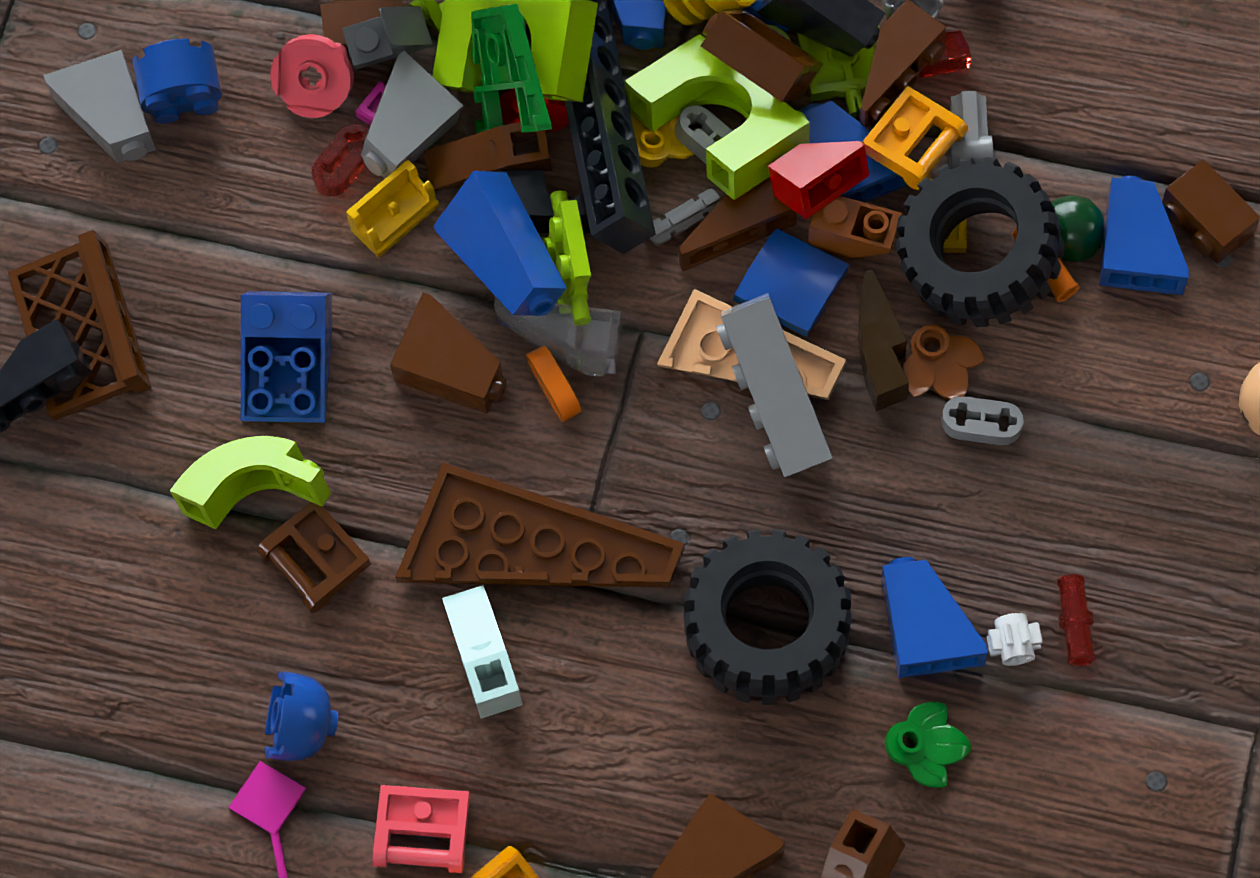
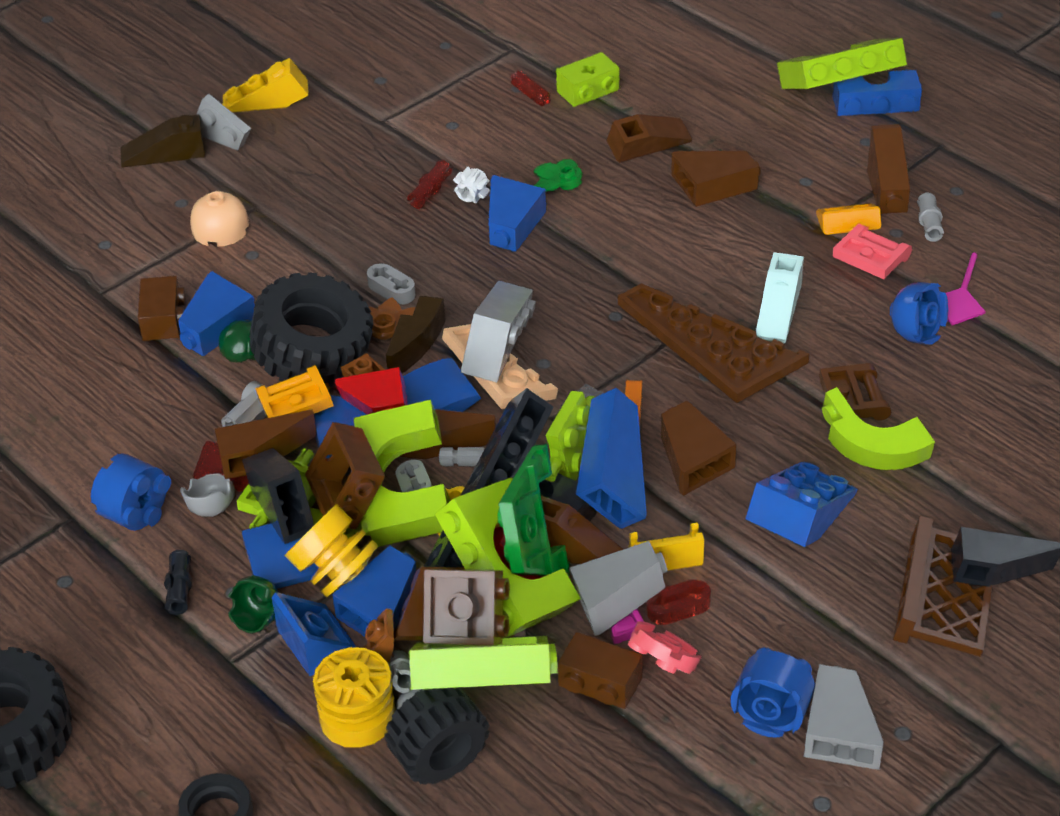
camera: 150 degrees left, 25 degrees down
(387, 36) = (585, 627): dark grey slope -> none
(777, 563) = (599, 239): black tyre -> none

